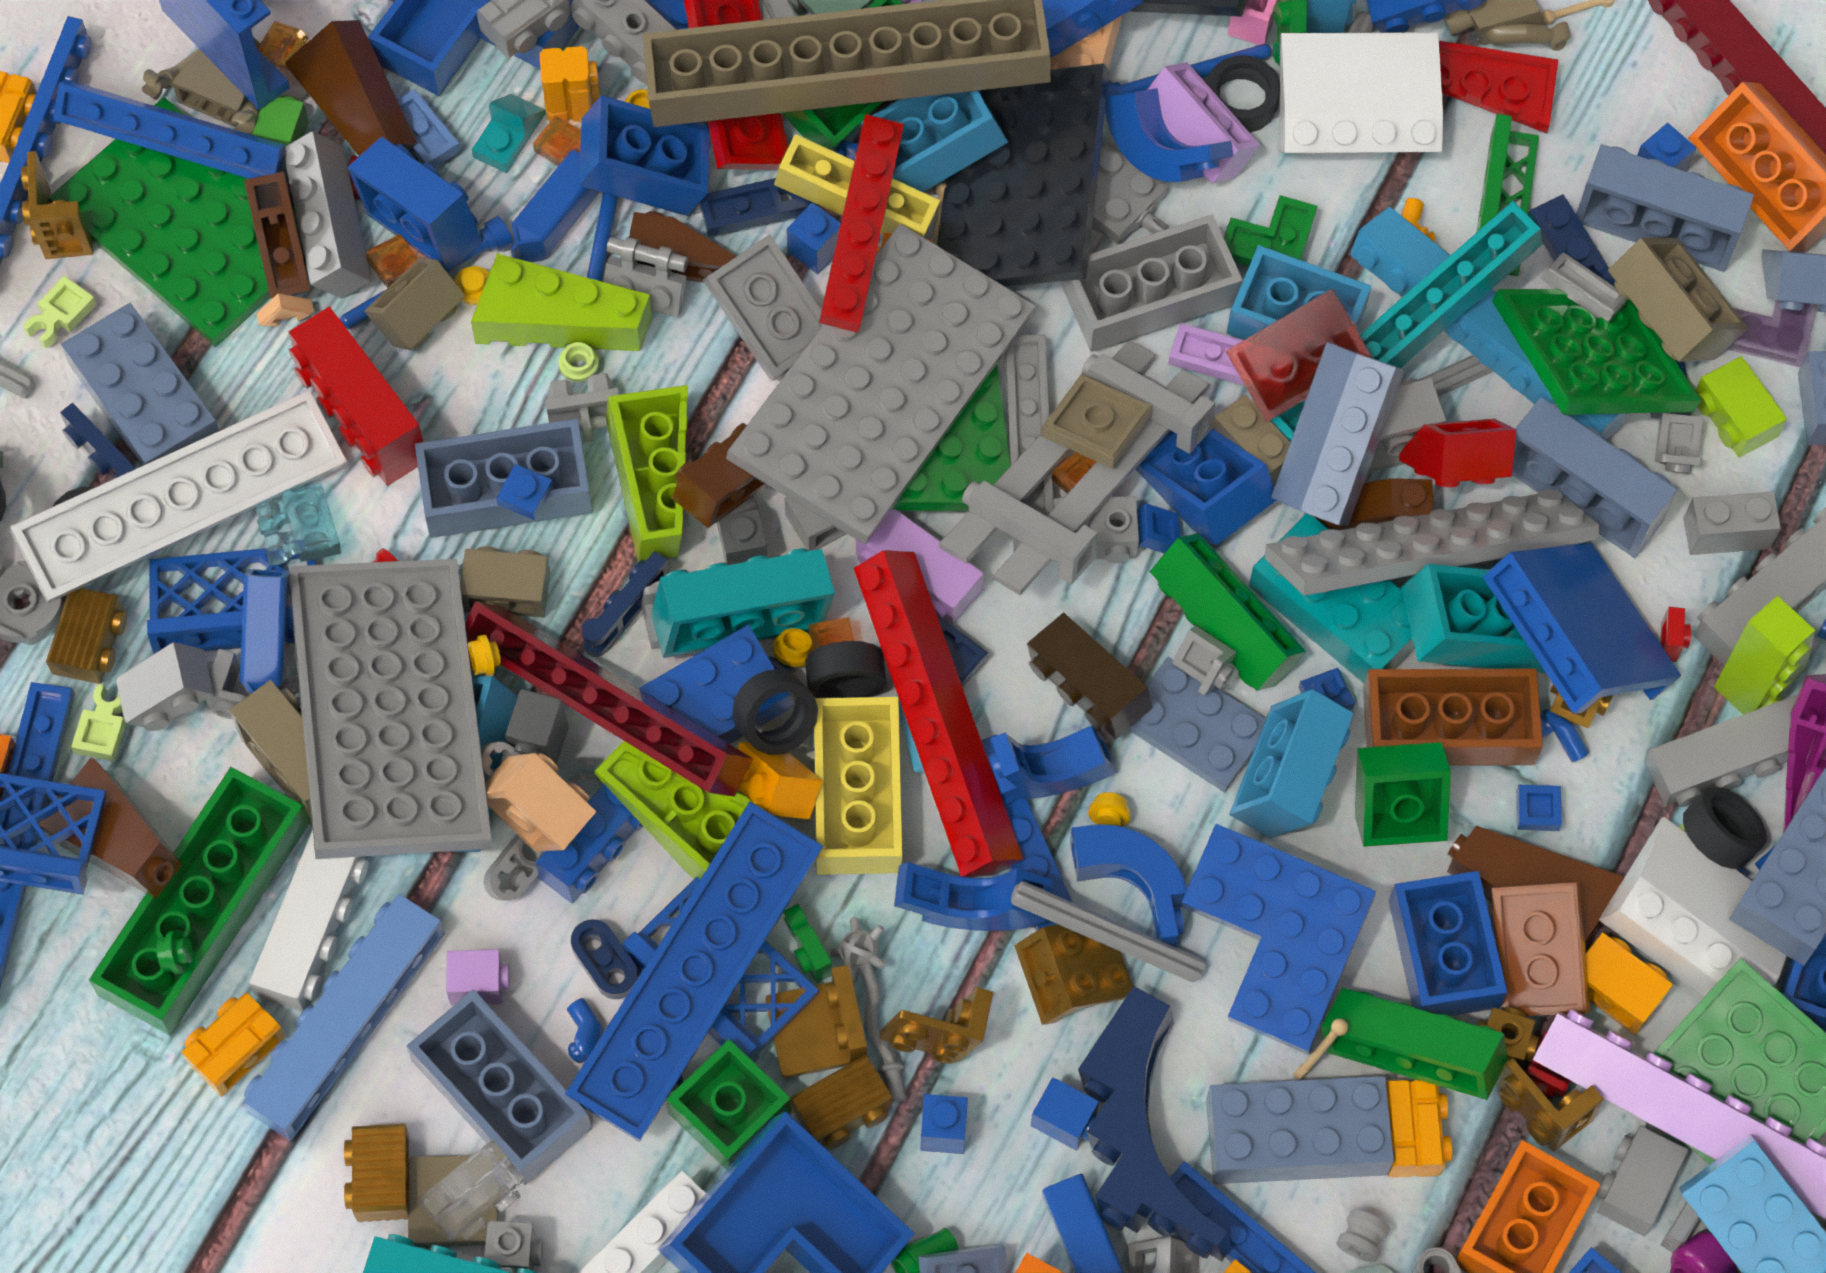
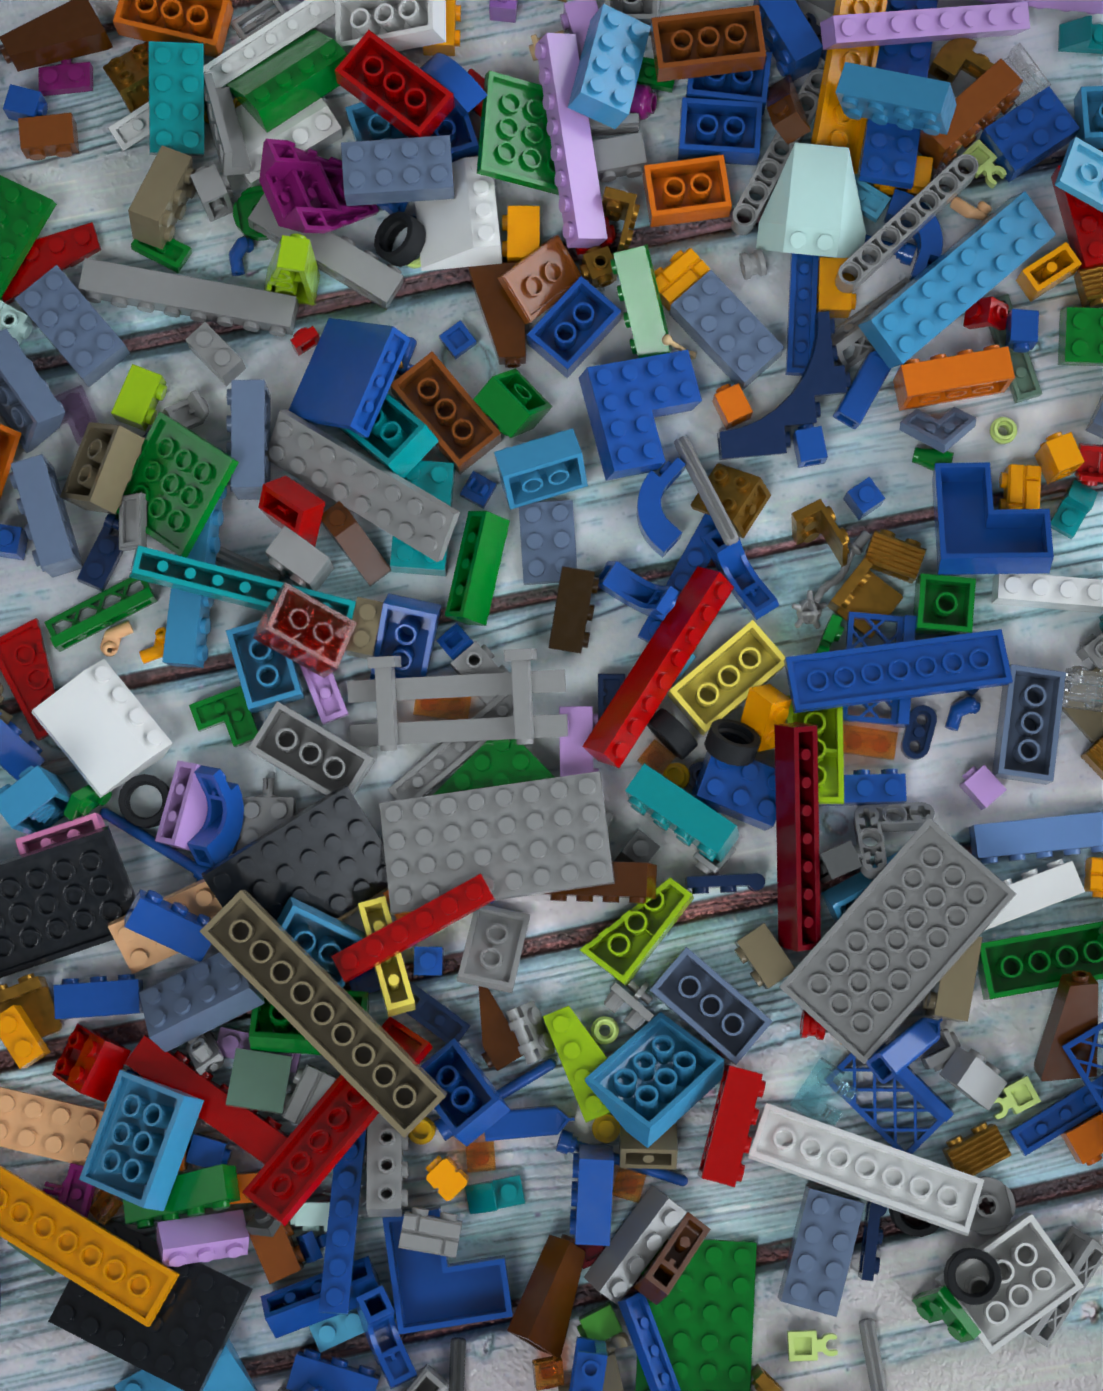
camera: 130 degrees left, 15 degrees up
(284, 307) = (706, 1218): light nougat tile -> none
(433, 139) = (534, 1239): medium blue plate -> none
(477, 352) = (655, 1078): none -> dark azure slope
(483, 656) = (826, 918): yellow plate -> none
(524, 492) = (717, 978): blue plate -> none
(537, 801) = (883, 818): light nougat brick -> none
(644, 891) = (869, 742): none -> clear orange plate
(1097, 421) = (424, 714): dark tan plate -> none
(1109, 810) = (634, 546): yellow plate -> none
(1195, 1061) = (732, 405): none -> orange brick
(1205, 660) = (514, 556): light grey bracket -> none
(1337, 434) = (341, 573): sand blue slope -> none
(1462, 189) = (112, 638): none -> light nougat arm

